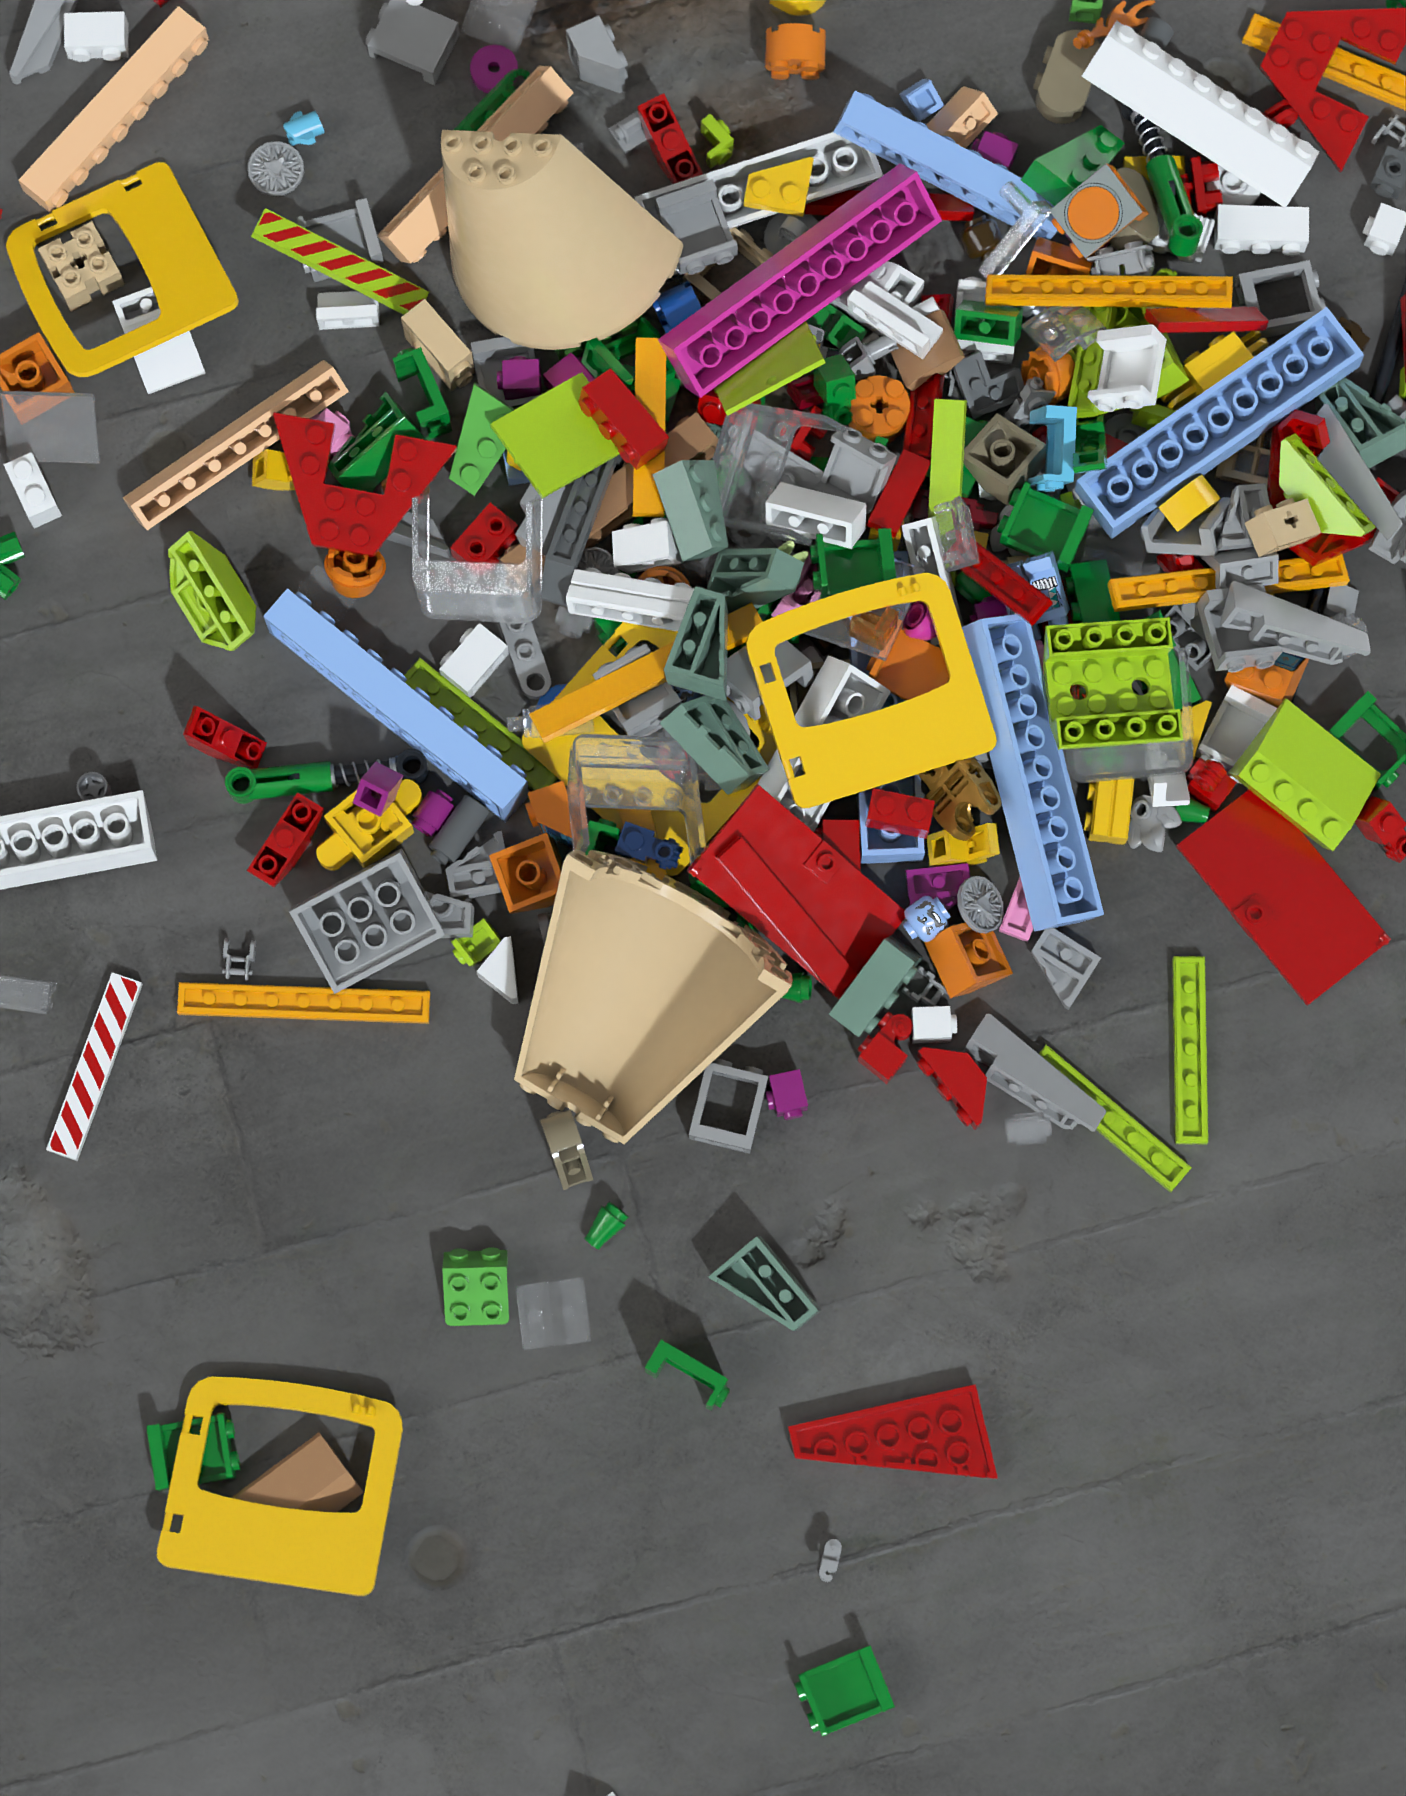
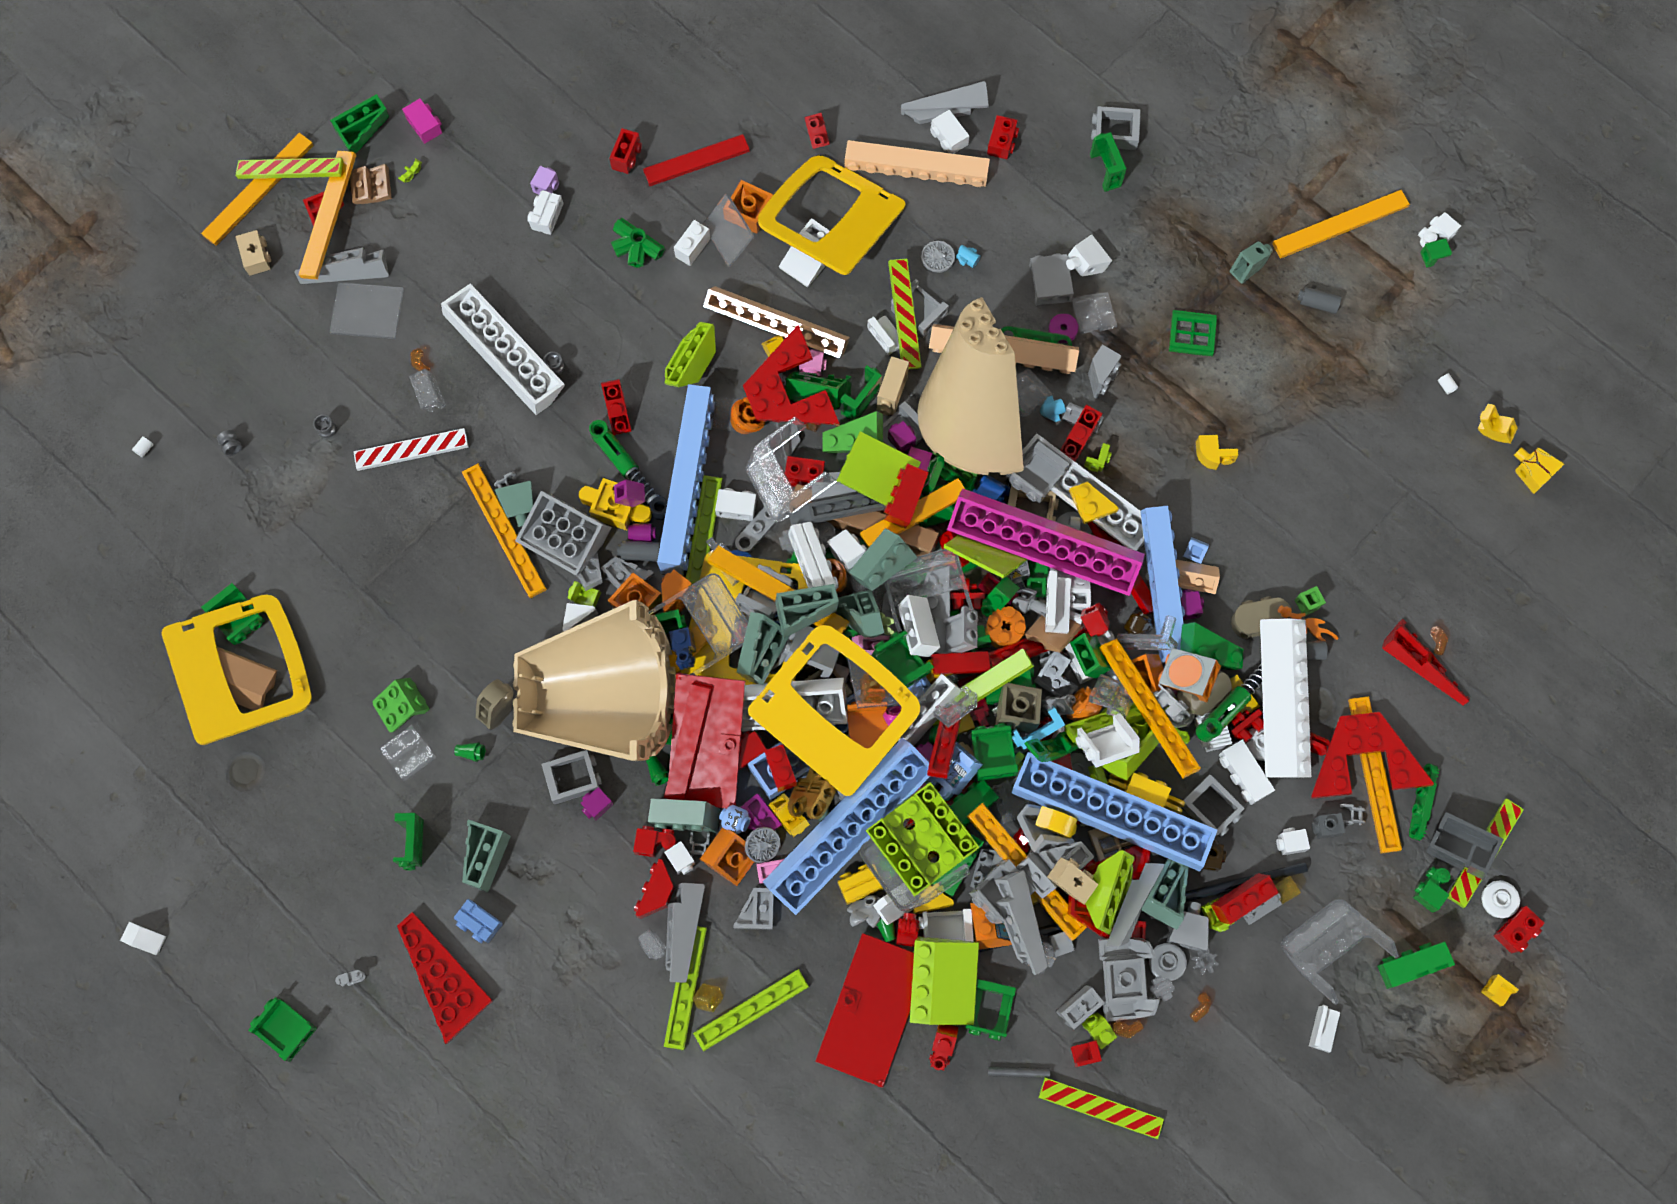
camera: 60 degrees right, 5 degrees down
(86, 249) = (823, 196): tan brick -> none
(276, 956) = (516, 500): none -> sand green torso
(287, 841) = (580, 469): red slope -> none
(605, 154) = (1052, 409): none -> medium azure piece
(795, 51) = (1175, 467): orange brick -> none
(855, 1344) = (477, 921): none -> medium blue brick
(946, 284) = (1095, 619): none -> red brick
(1141, 1096) = (708, 997): none -> clear yellow slope
(1206, 319) = (1167, 769): red tile -> none
(1308, 427) = (1142, 861): red bracket -> none

